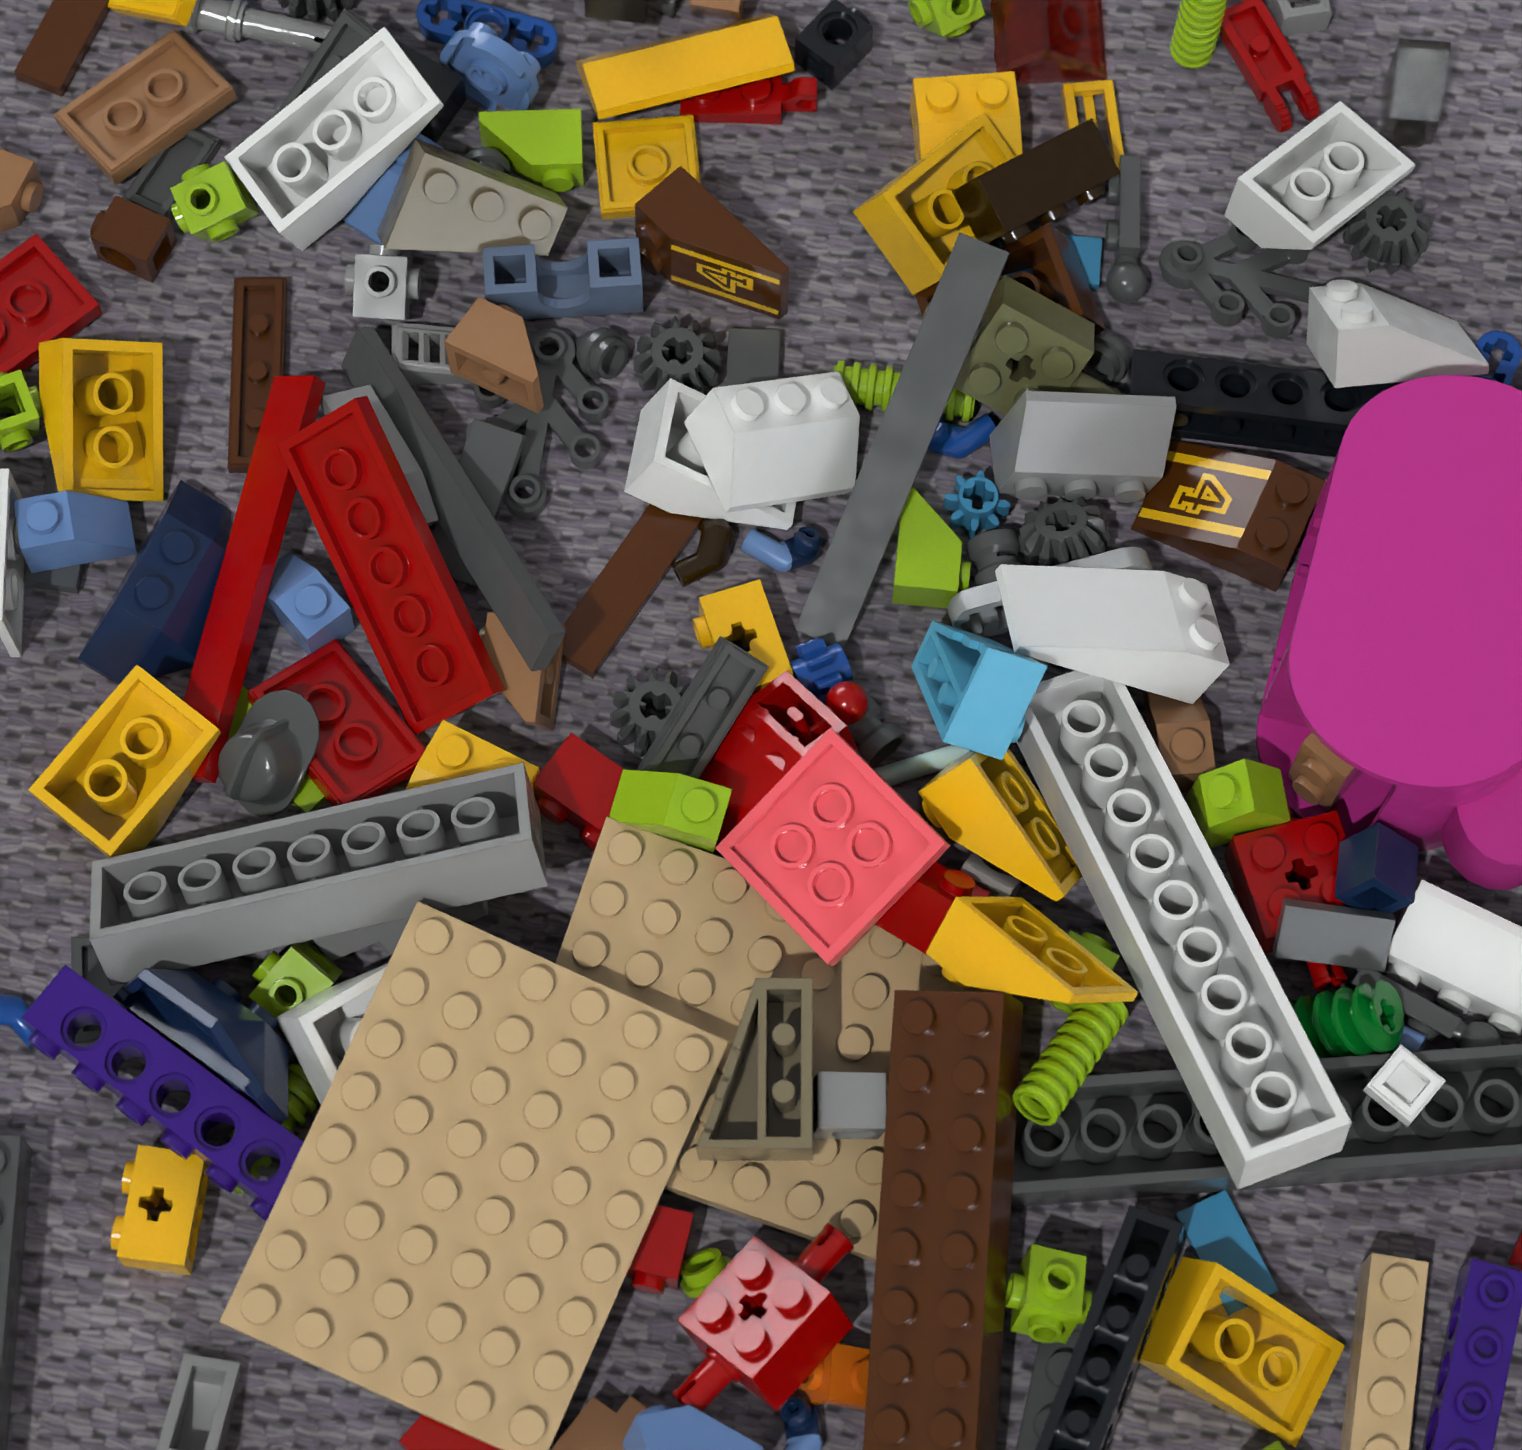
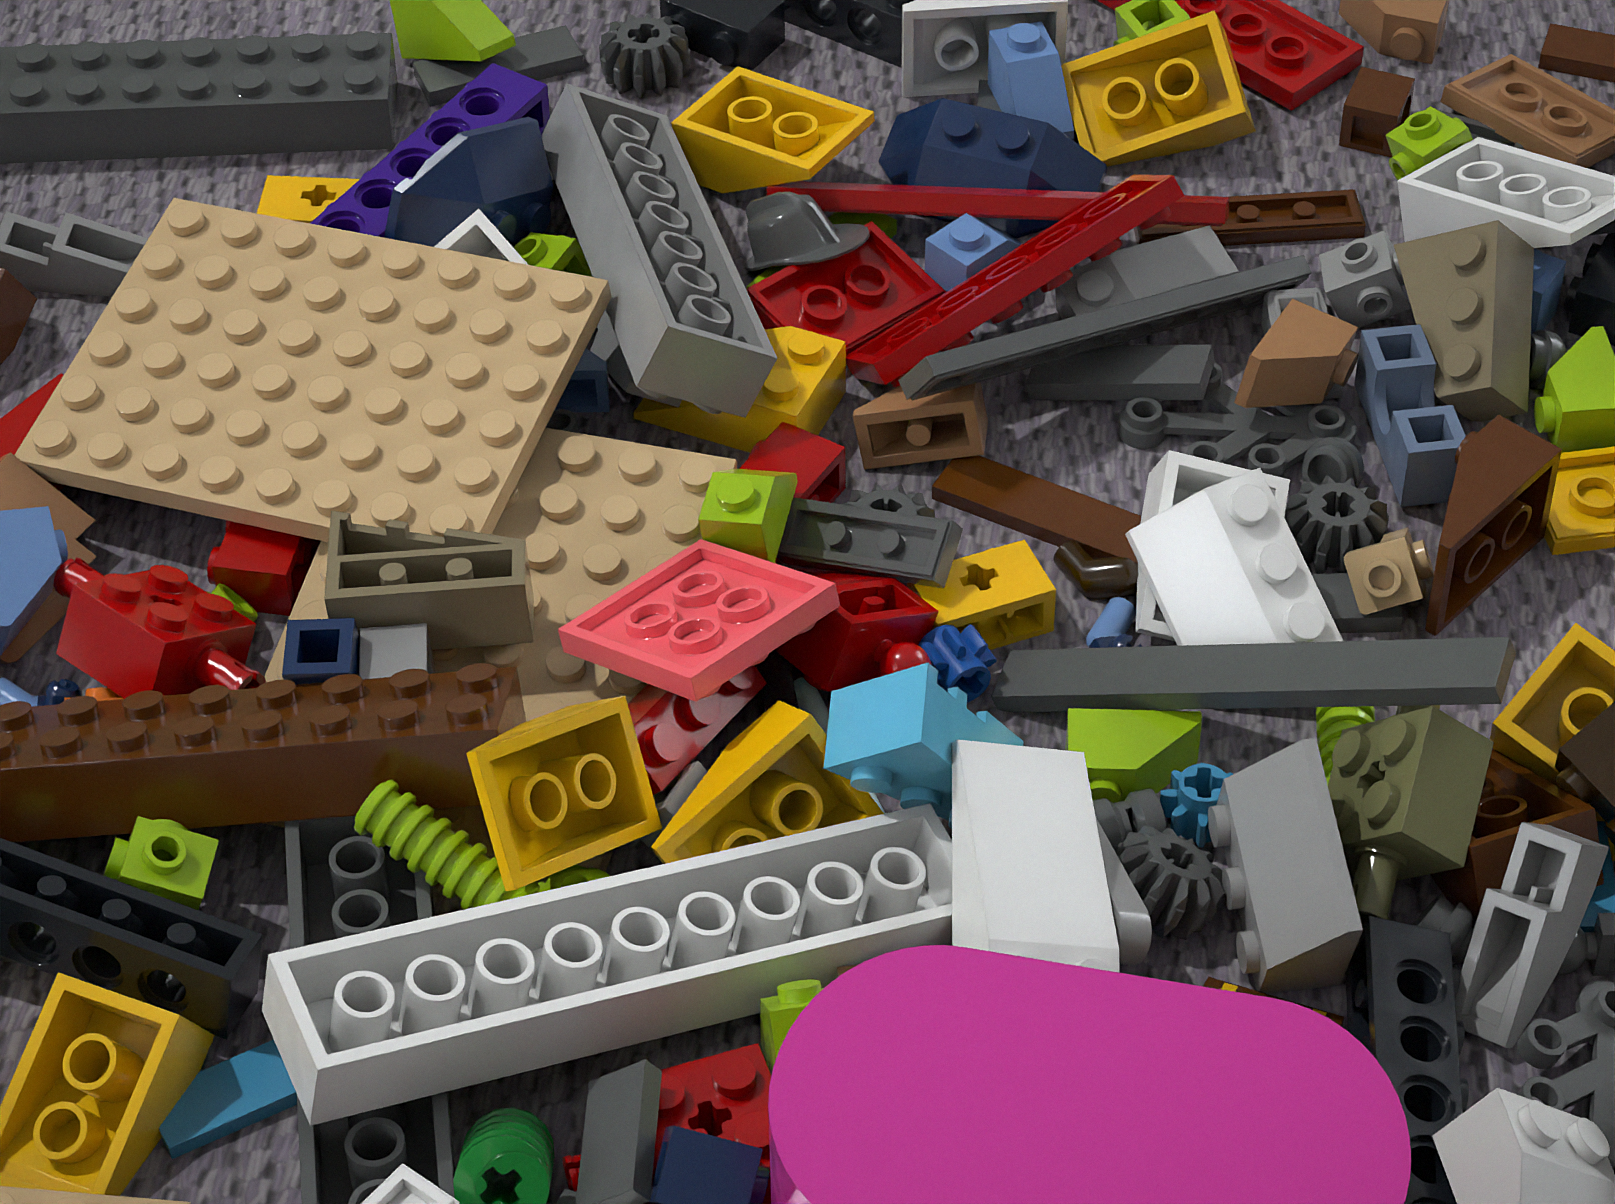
camera: 90 degrees right, 25 degrees down
(759, 324) = (1389, 572): none -> tan bracket
(850, 1161) = (320, 650): none -> dark blue brick
(1135, 292) = (1526, 930): none -> light grey slope

